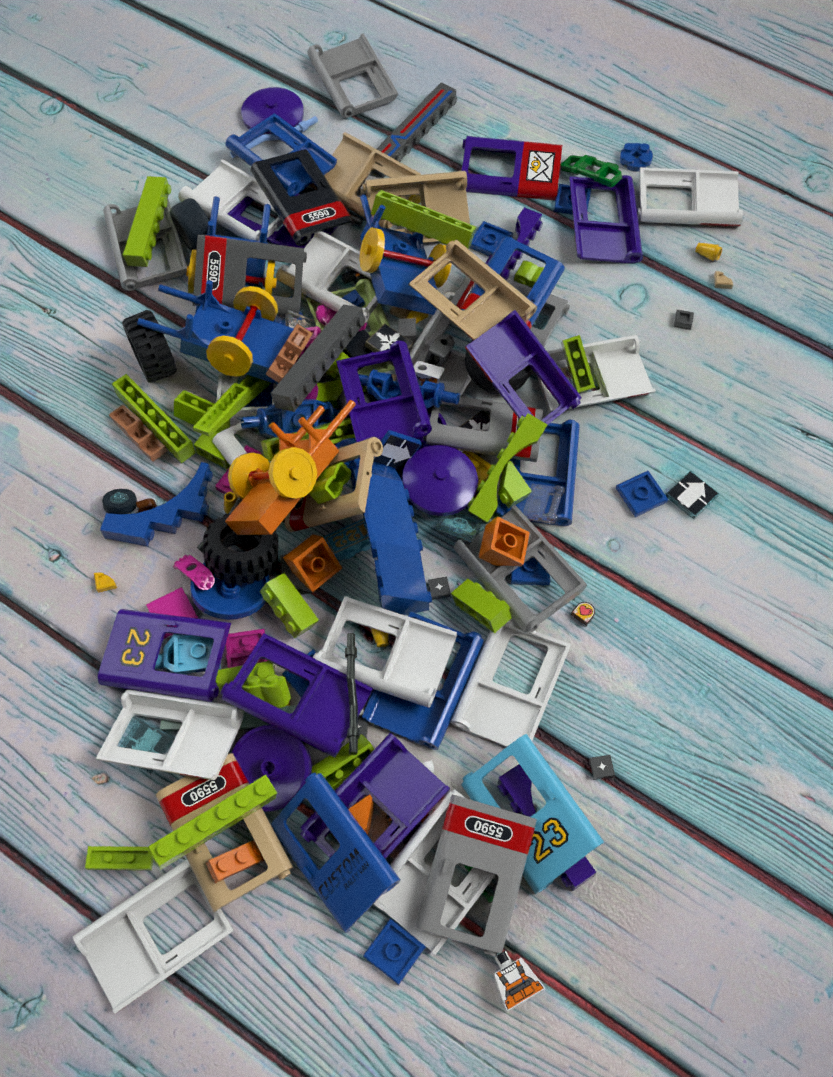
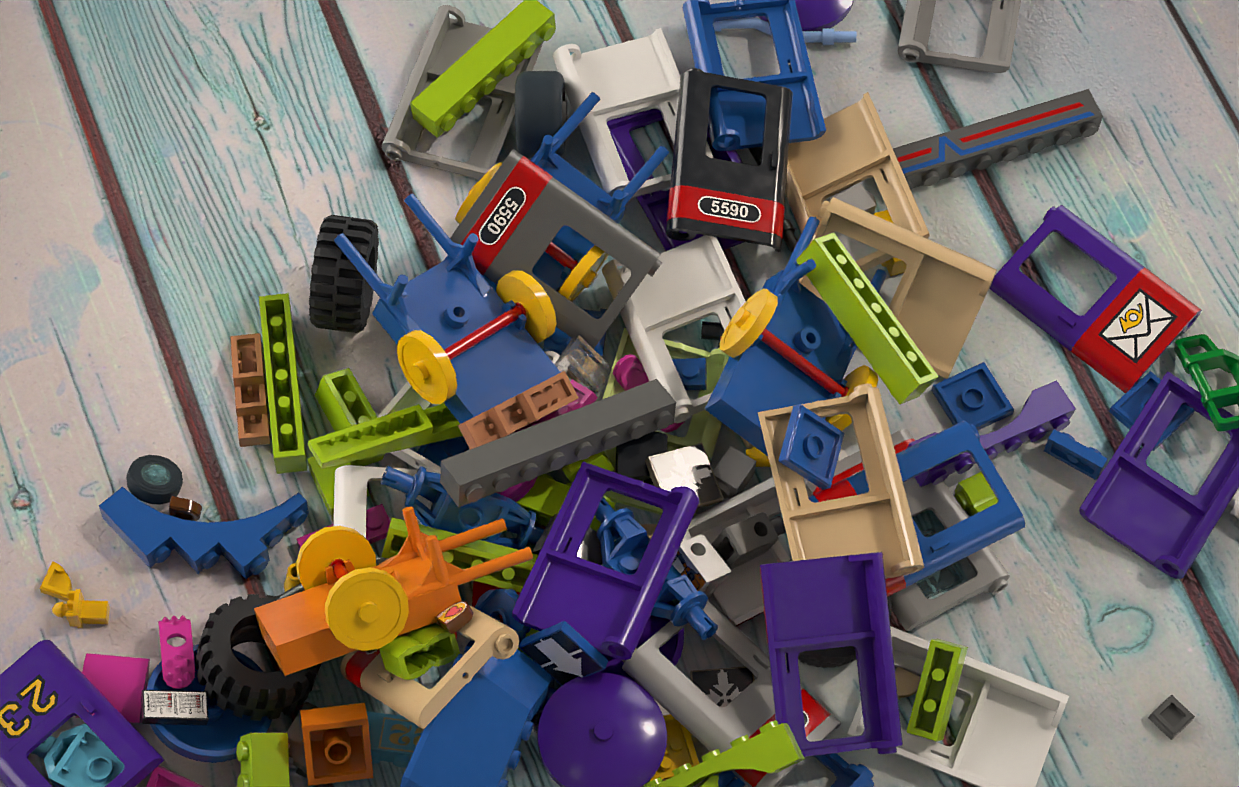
camera: 30 degrees right, 0 degrees up
(127, 587) = (82, 611): none -> yellow piece
(215, 597) = (174, 707): none -> tile
(337, 454) = (455, 617): none -> reddish brown tile
(445, 285) = (811, 447): none -> blue tile
(555, 235) = (1082, 458): none -> blue plate

